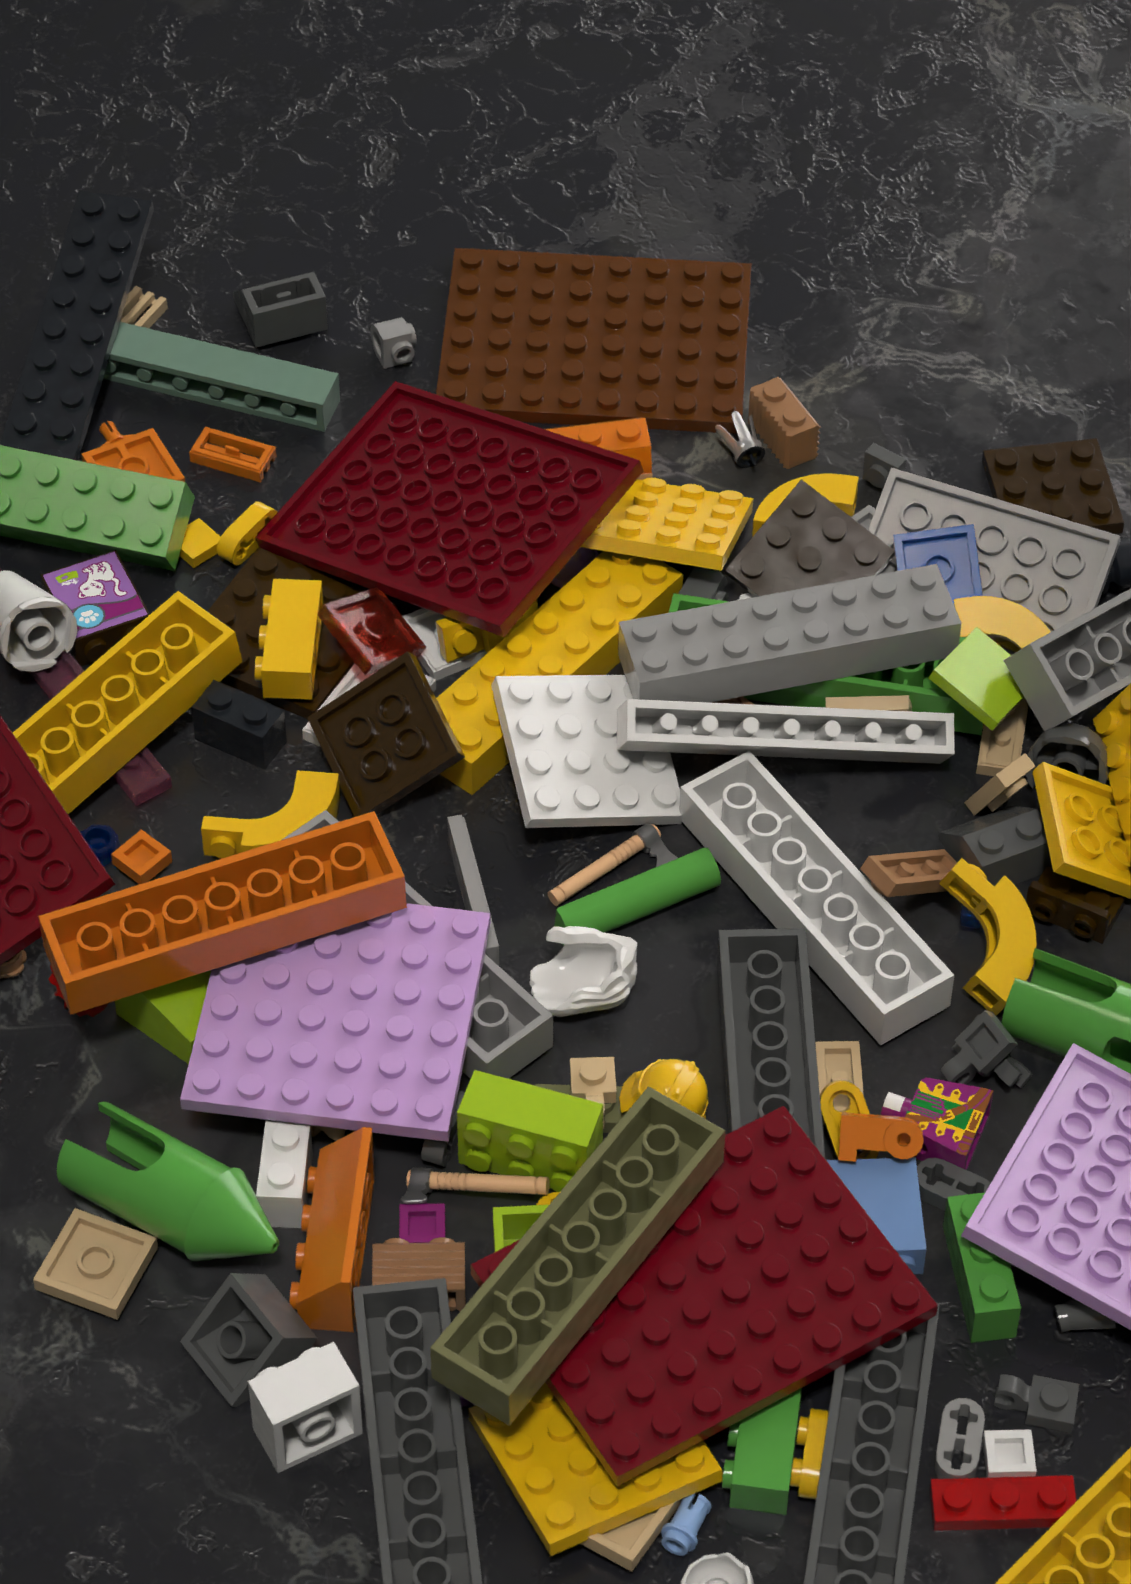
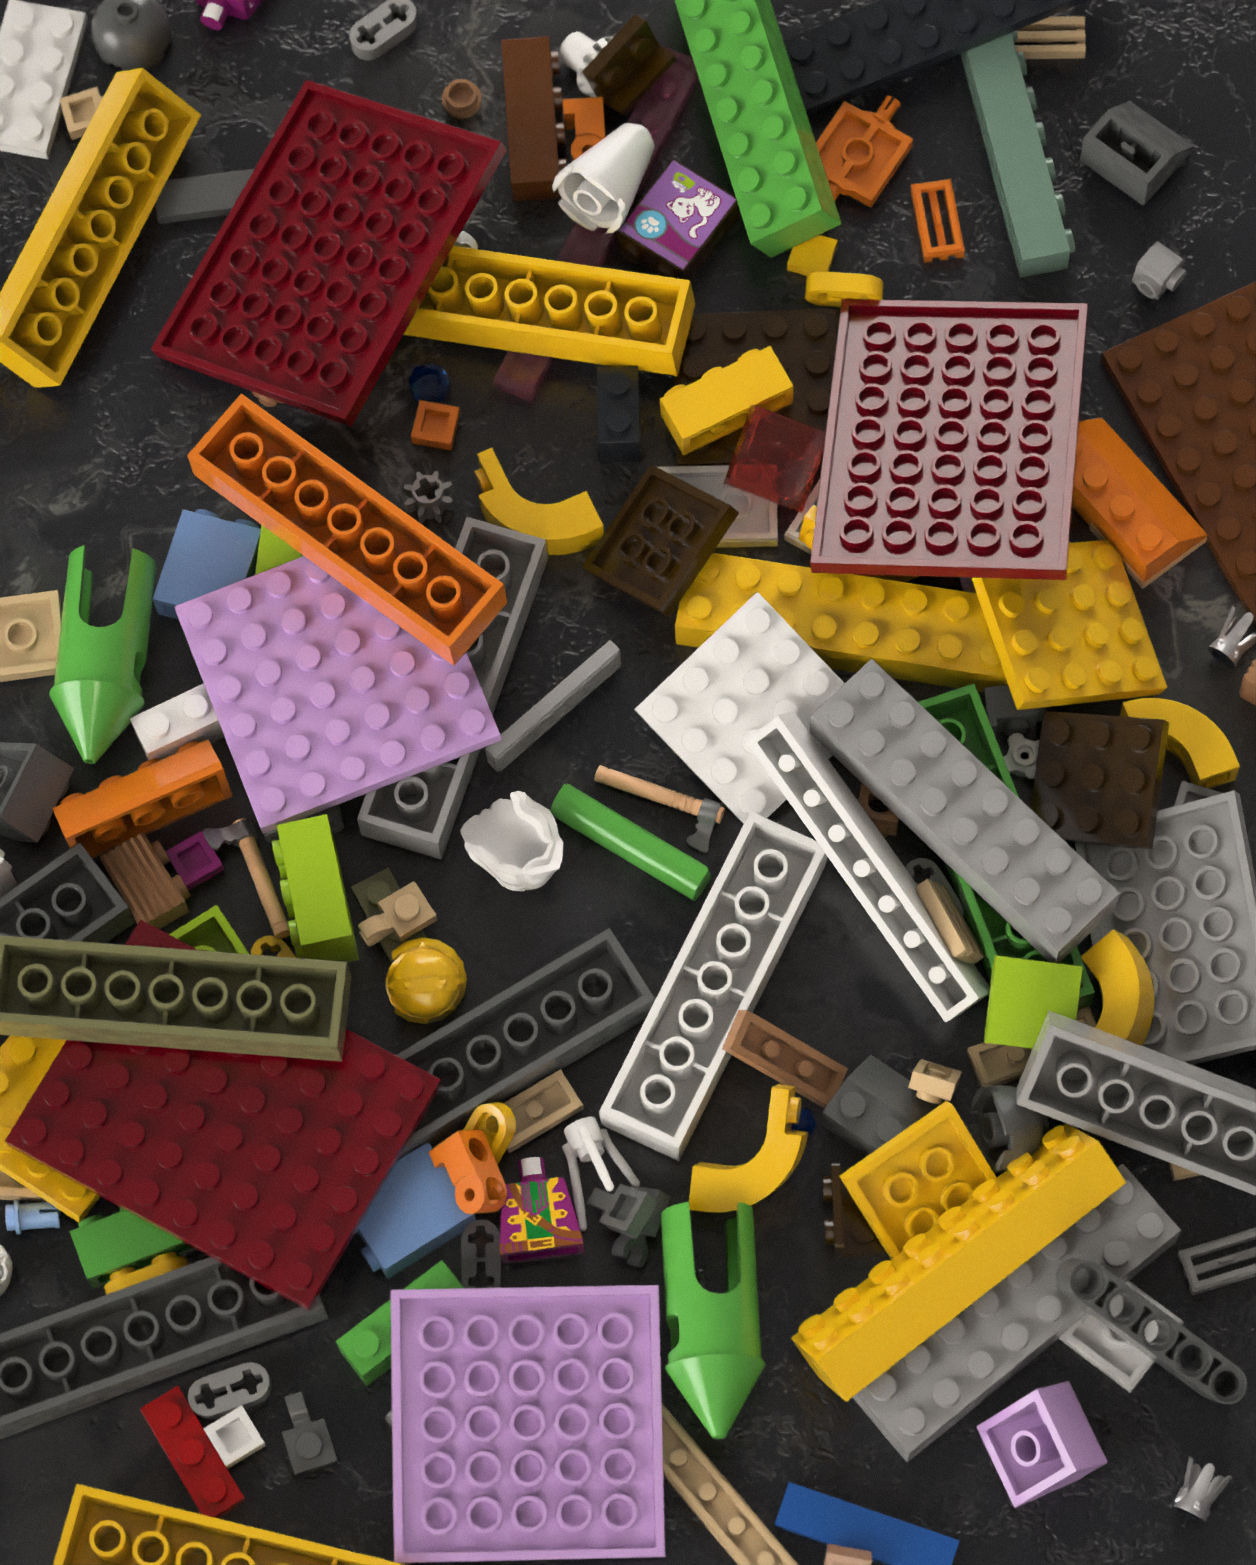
camera: 65 degrees right, 20 degrees up
(141, 1075) = (204, 558): none -> medium blue brick
(893, 1056) = (587, 1143): none -> white plant
(953, 552) = (1153, 897): plate -> none

